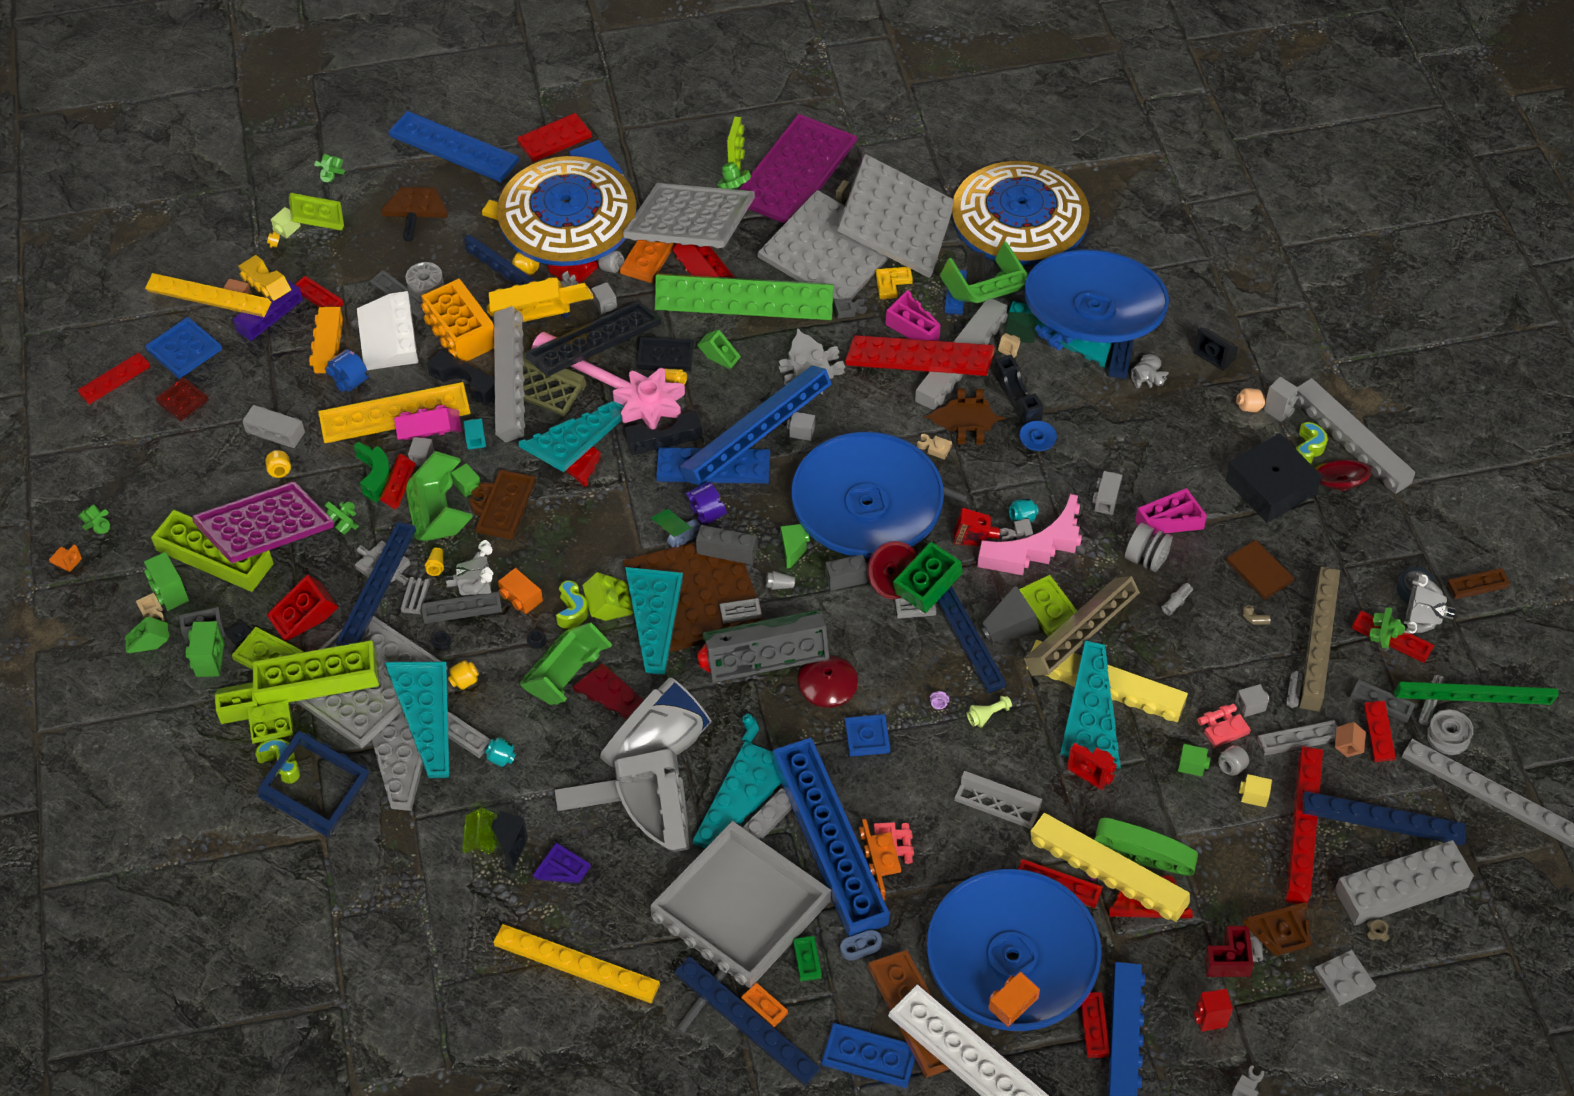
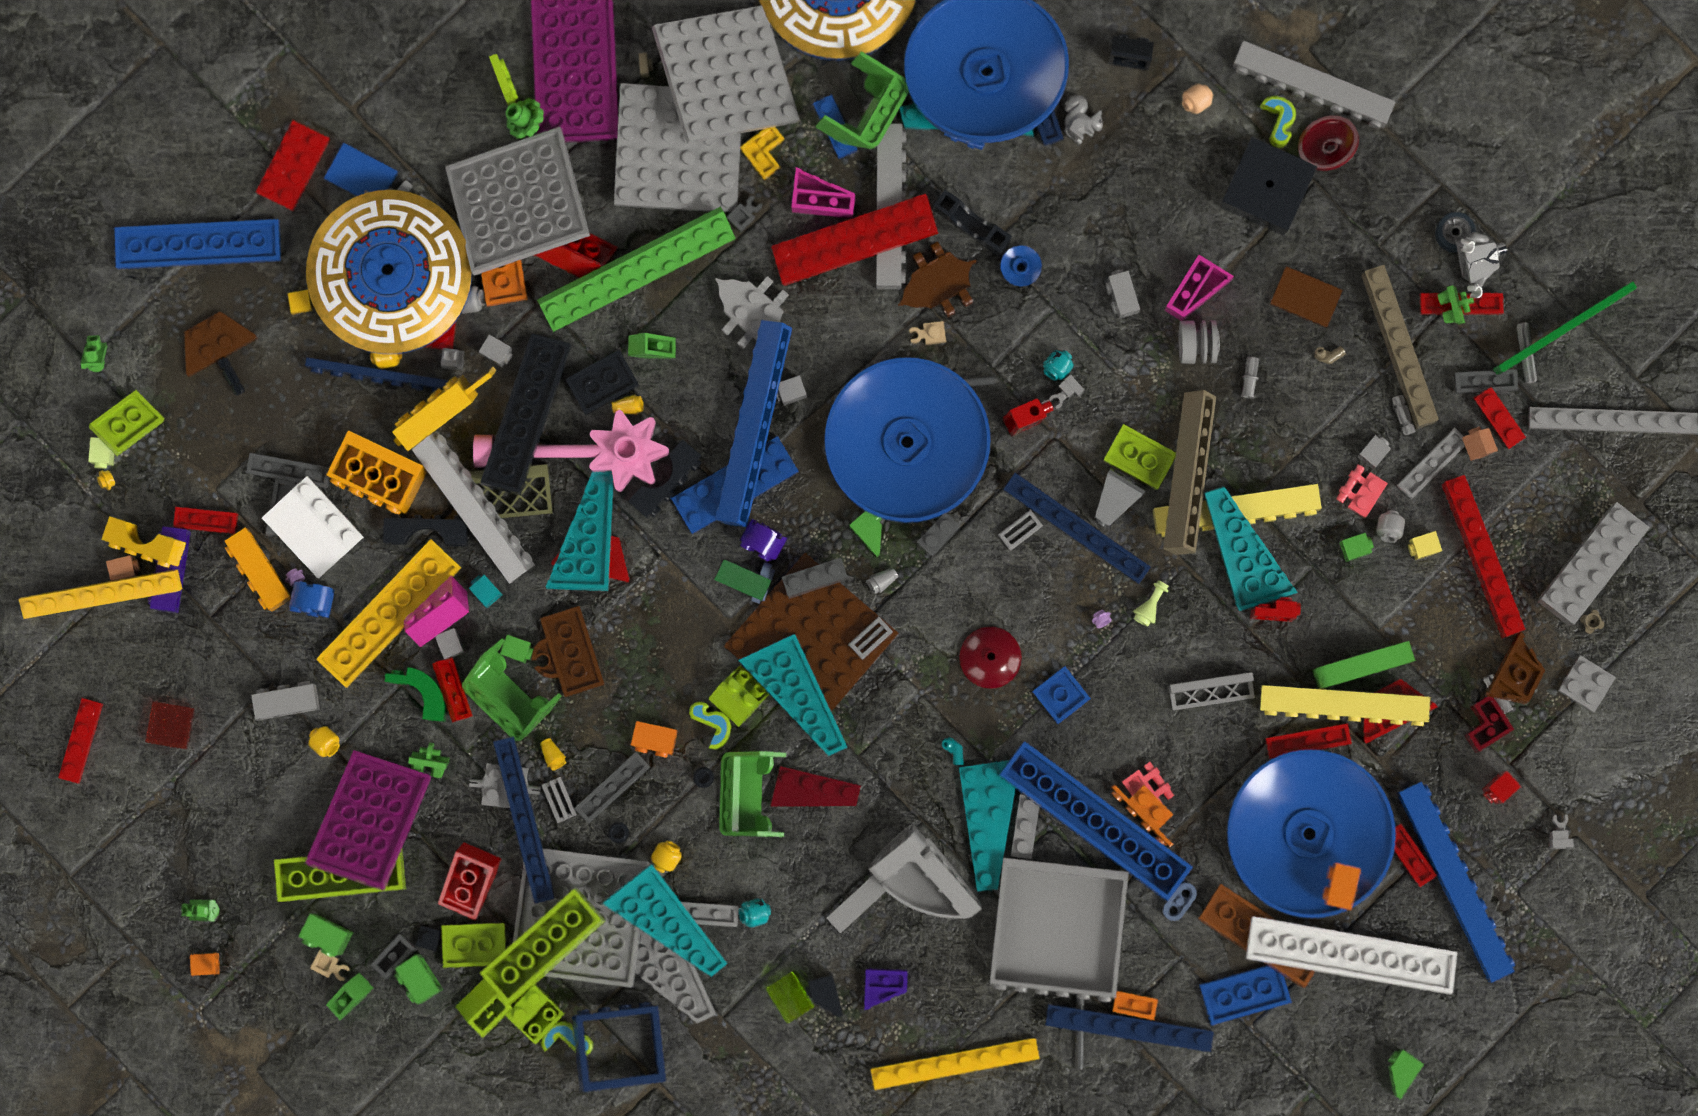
camera: 30 degrees left, 30 degrees up
(183, 347) = (121, 665): blue plate -> none
(424, 278) = (295, 426): light grey wheel -> none
(474, 575) = (601, 750): light grey torso -> none
(663, 721) = (878, 808): light grey panel -> none
(764, 646) = (919, 666): dark grey piece -> none
(807, 958) = (1143, 941): green plate -> none
(893, 555) = (984, 511): dark red dish -> none
(928, 577) = (1021, 503): green brick -> none
(1009, 344) = (930, 168): tan tile -> none
(1017, 554) = (1108, 370): bright pink arch -> none
(1022, 326) = (926, 138): clear green piece -> none
(1281, 399) = (1228, 85): light grey brick -> none
(1383, 818) = (1548, 512): dark blue plate -> none
(1440, 728) = (1568, 371): light grey wheel -> none
(1478, 583) = (1509, 195): reddish brown plate -> none

